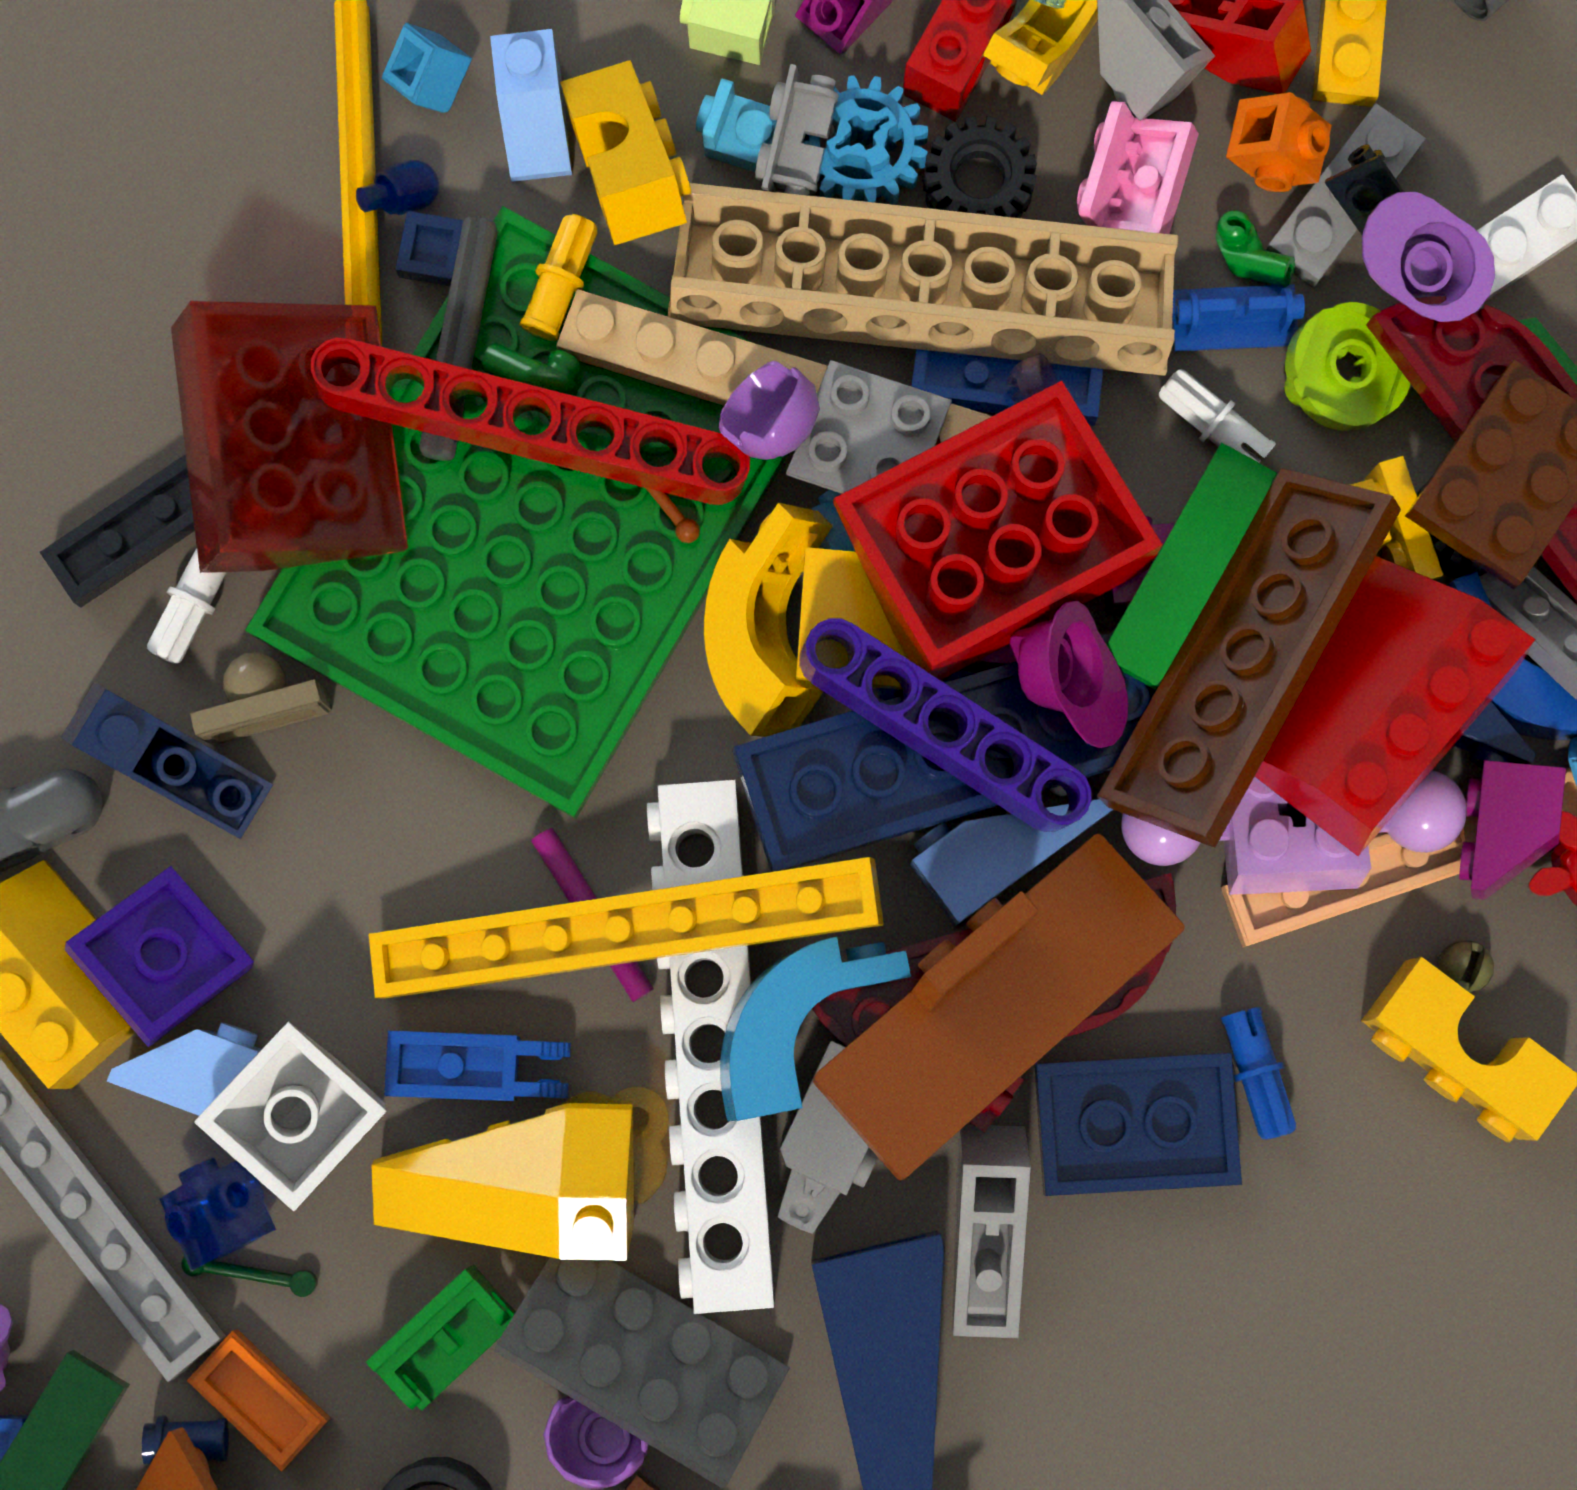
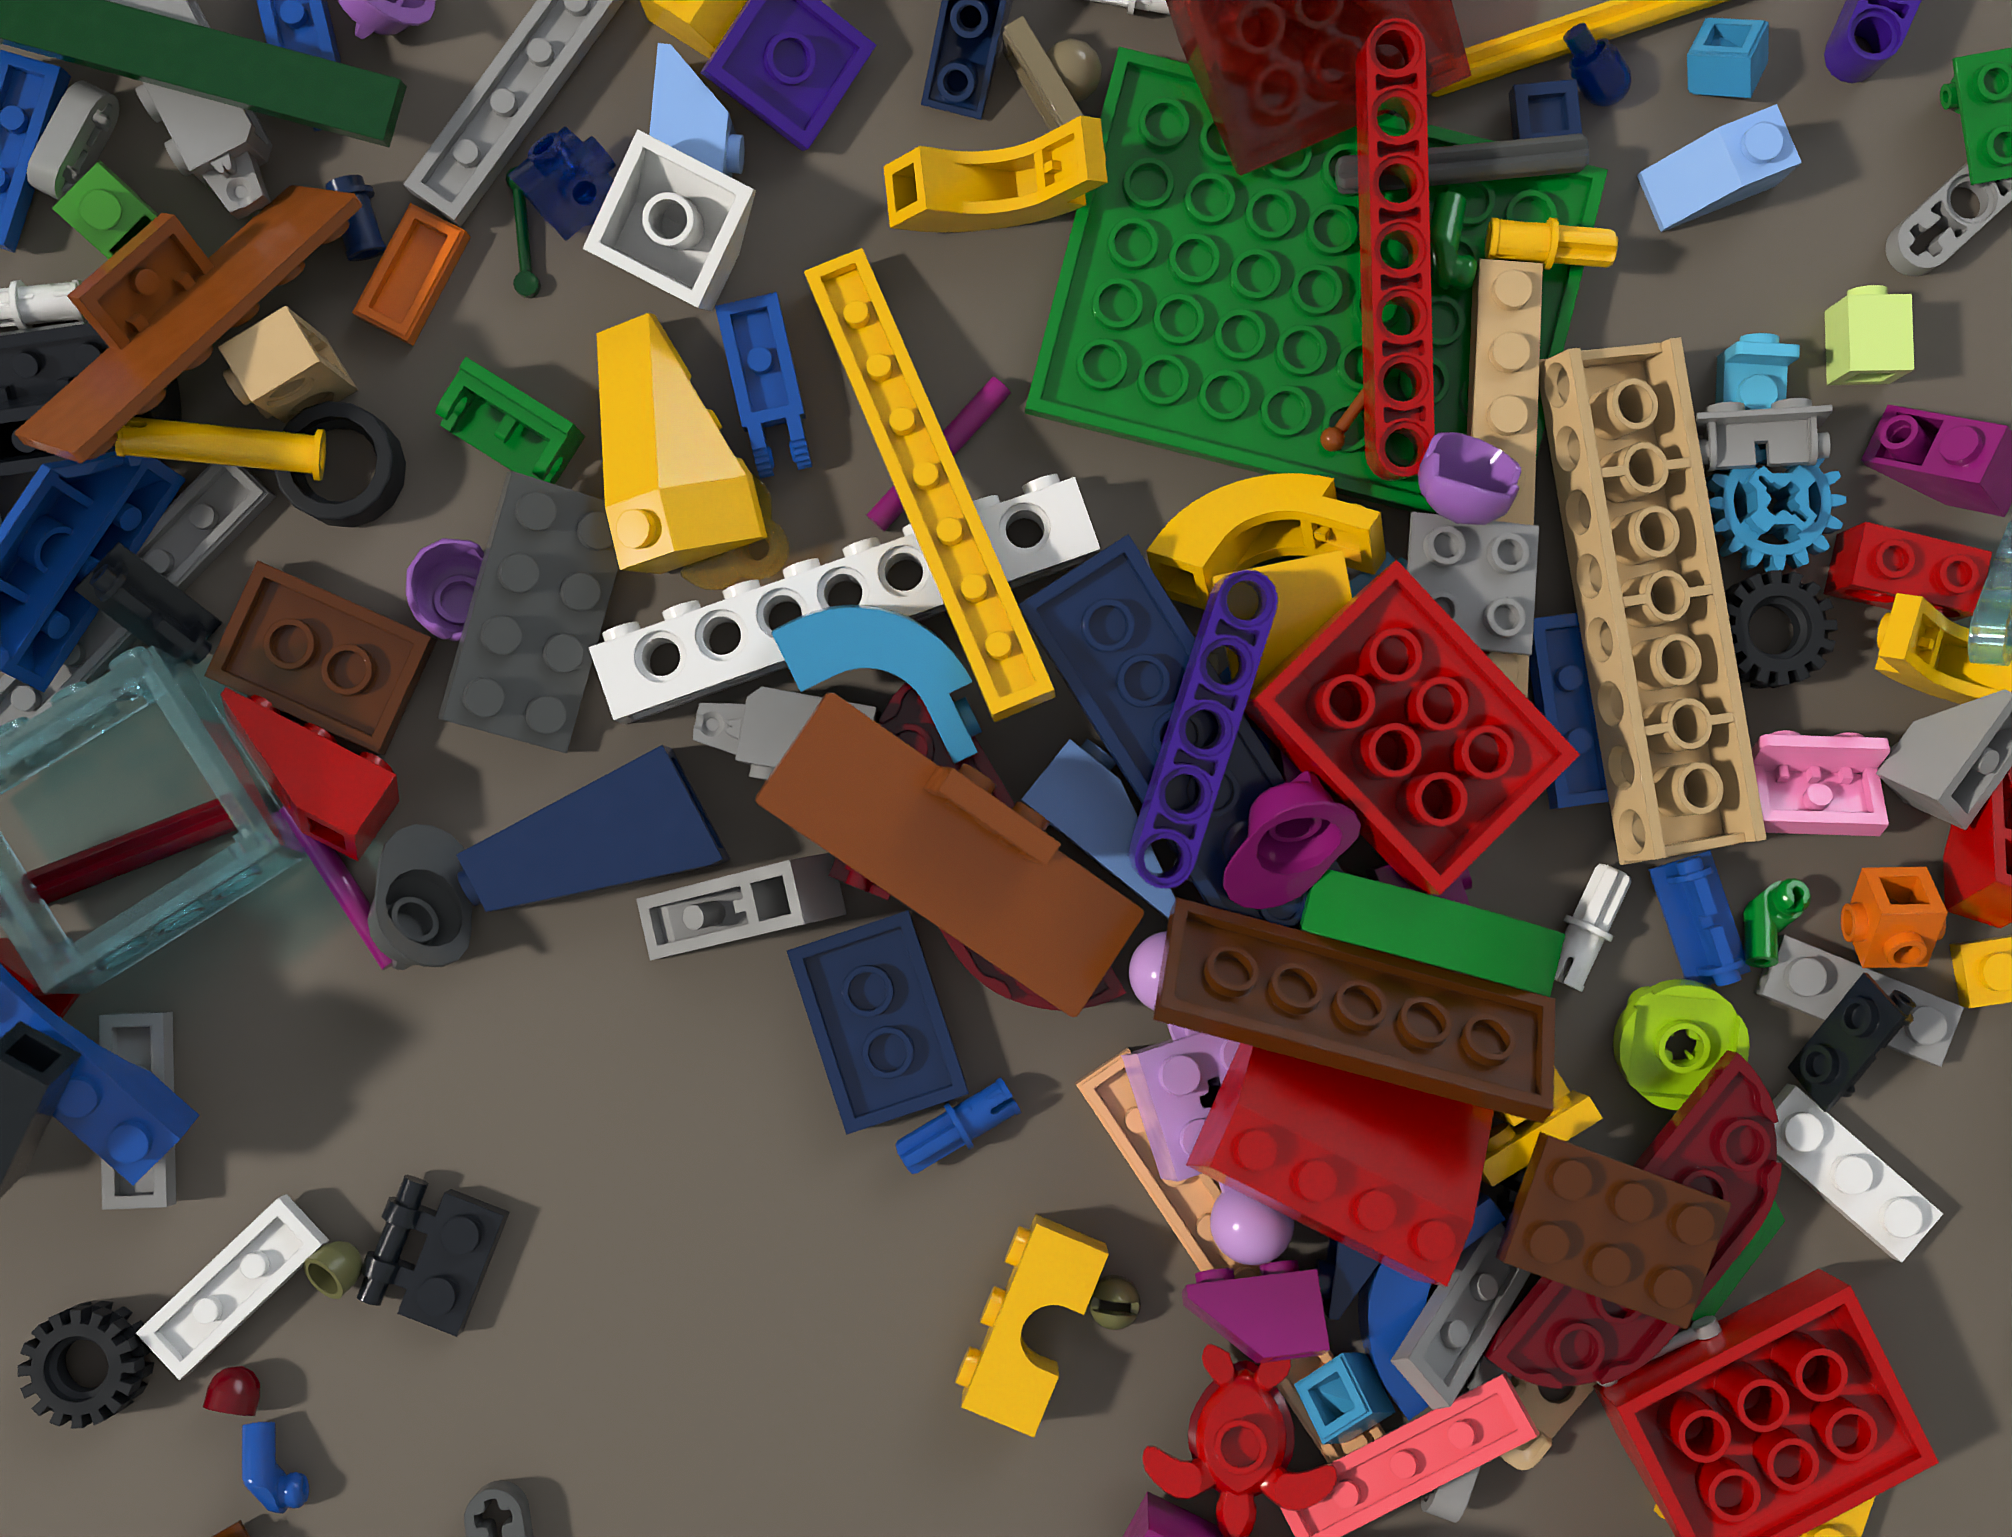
camera: 75 degrees right, 5 degrees up
(347, 783) = (998, 187): none -> yellow arch
(627, 151) = (1696, 271): yellow arch -> none
(1031, 377) = (1580, 731): clear purple hinge -> none
(1427, 251) = (1819, 1086): medium lavender piece -> none

